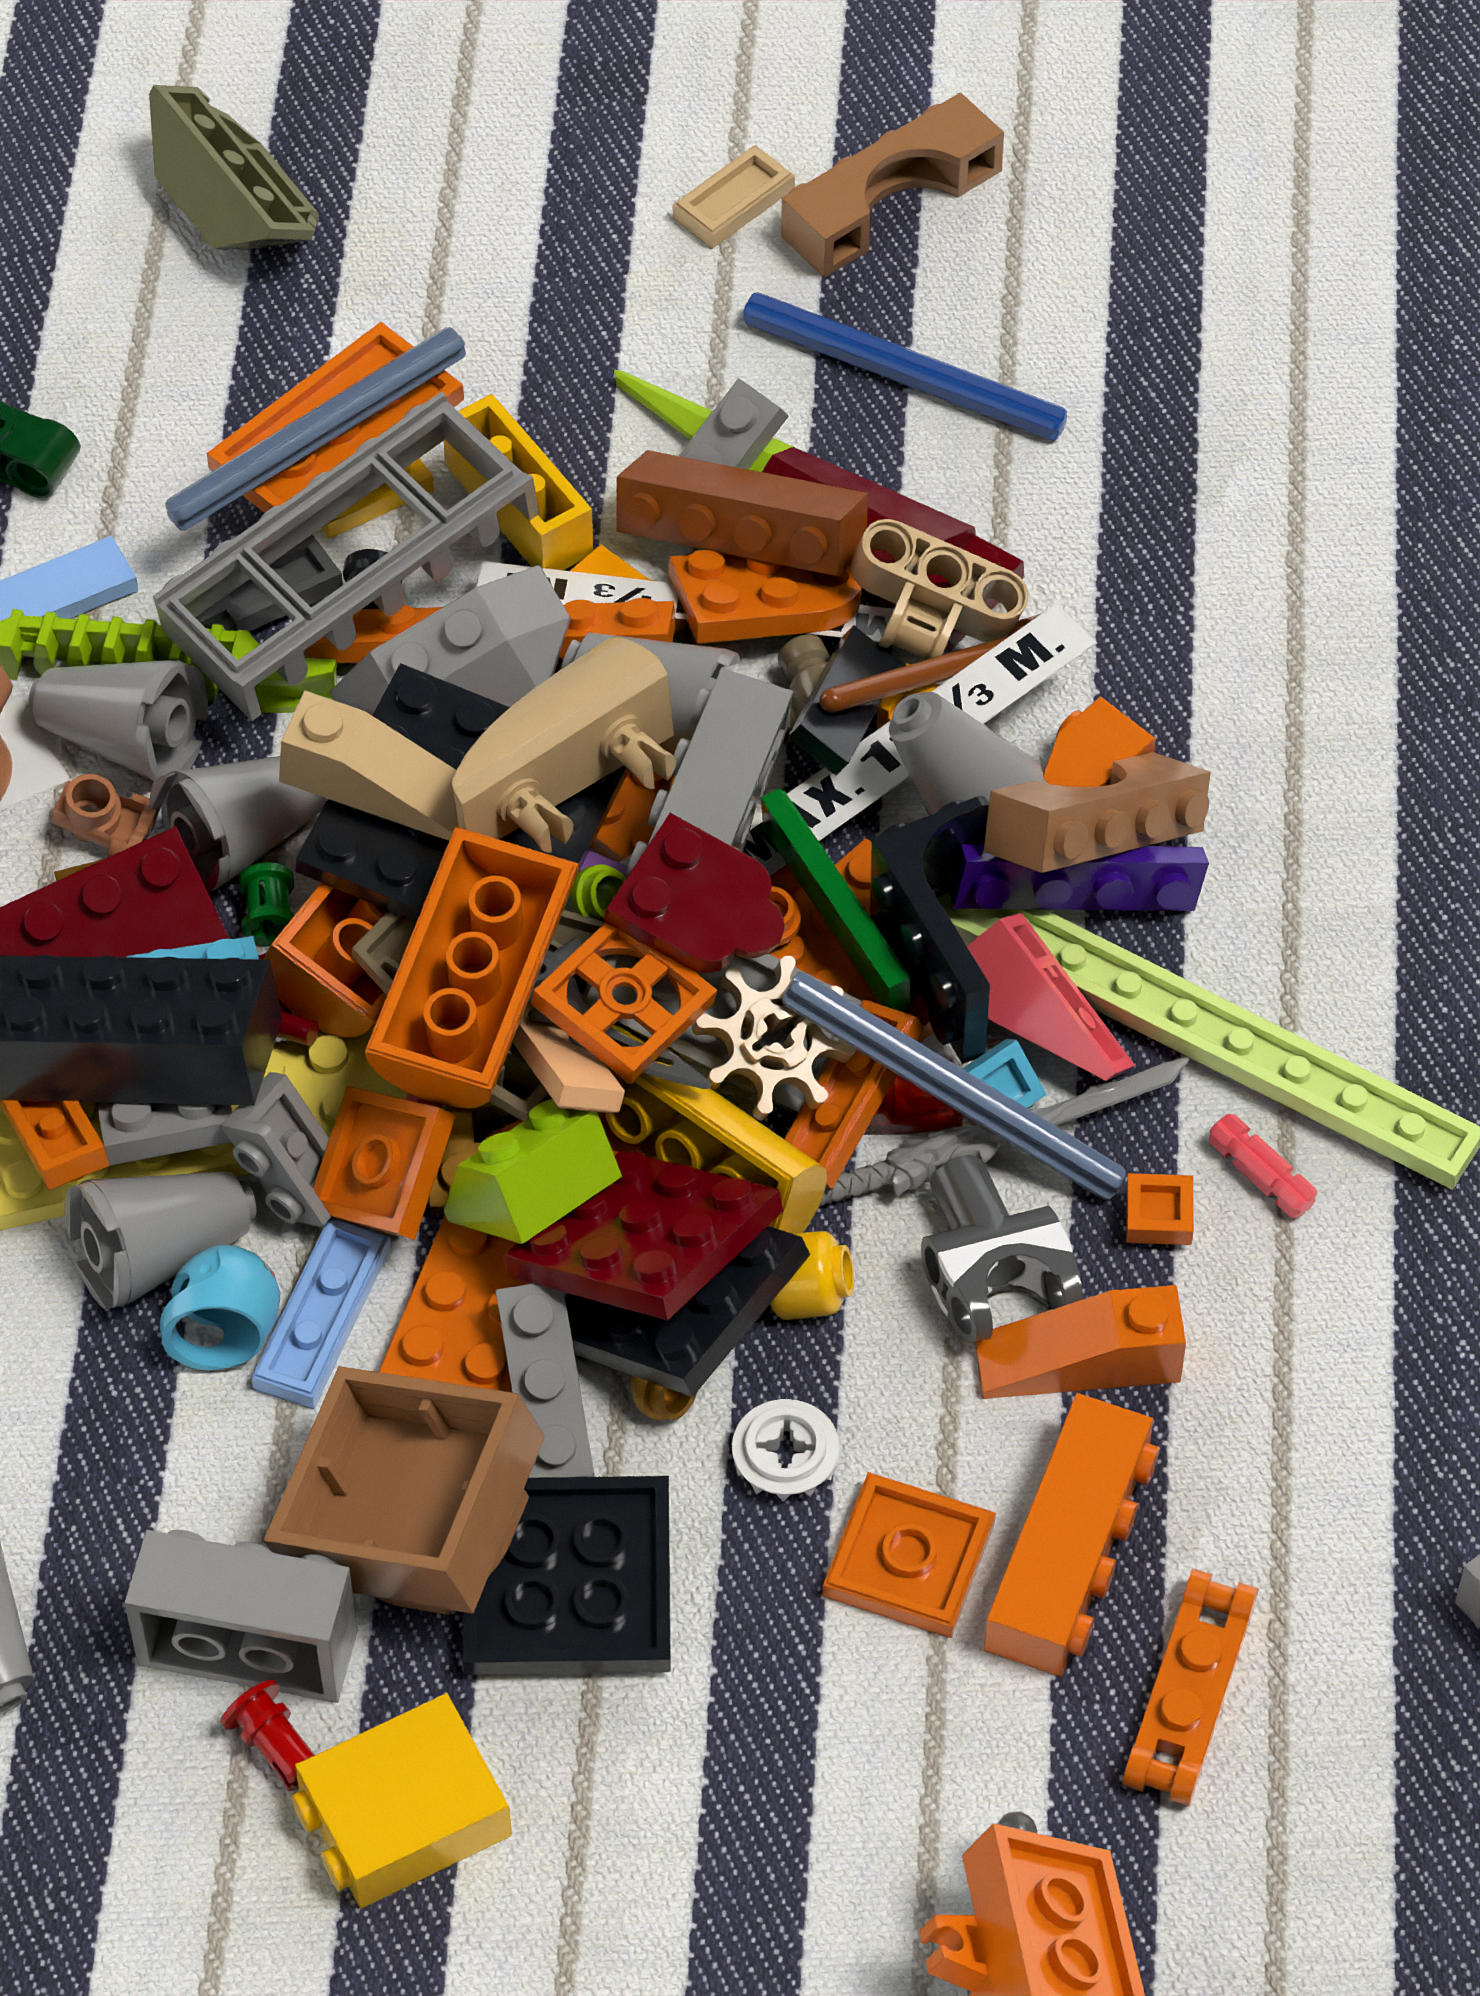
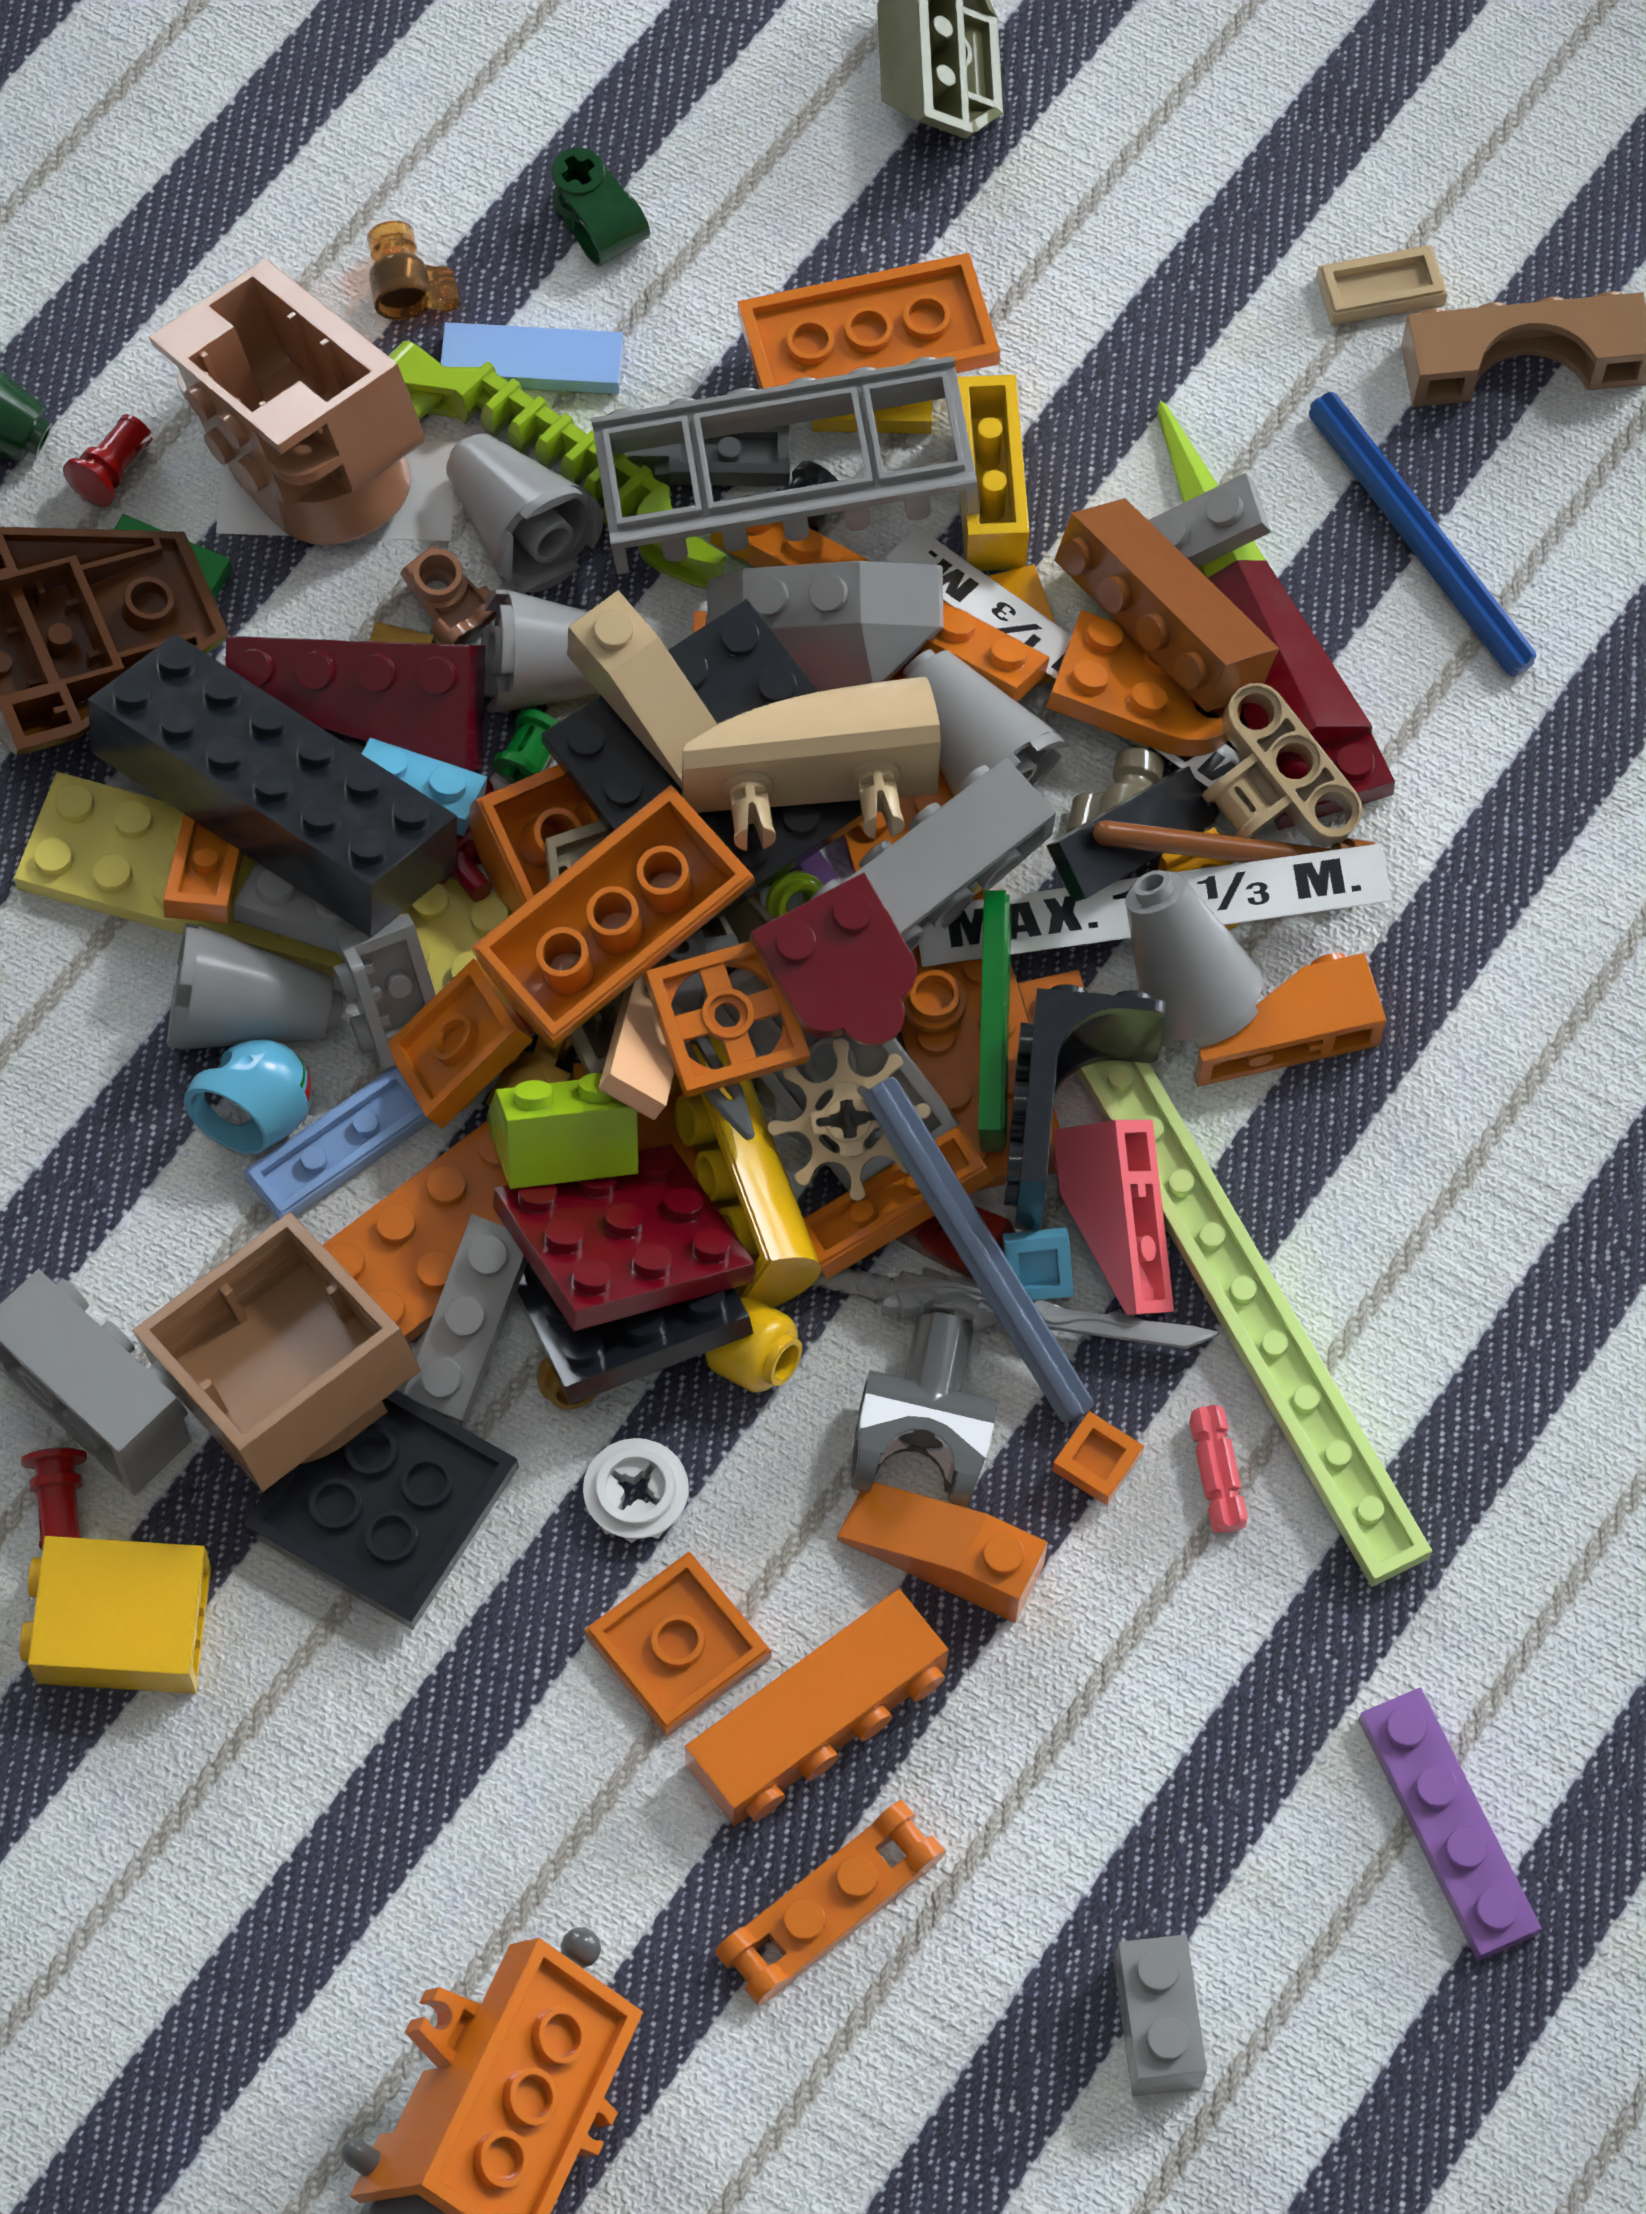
camera: 30 degrees right, 10 degrees up
(315, 429) = (841, 328): sand blue axle -> none
(1065, 825) = (1217, 1063): medium nougat arch -> none
(1130, 880) = (1228, 1114): dark purple plate -> none

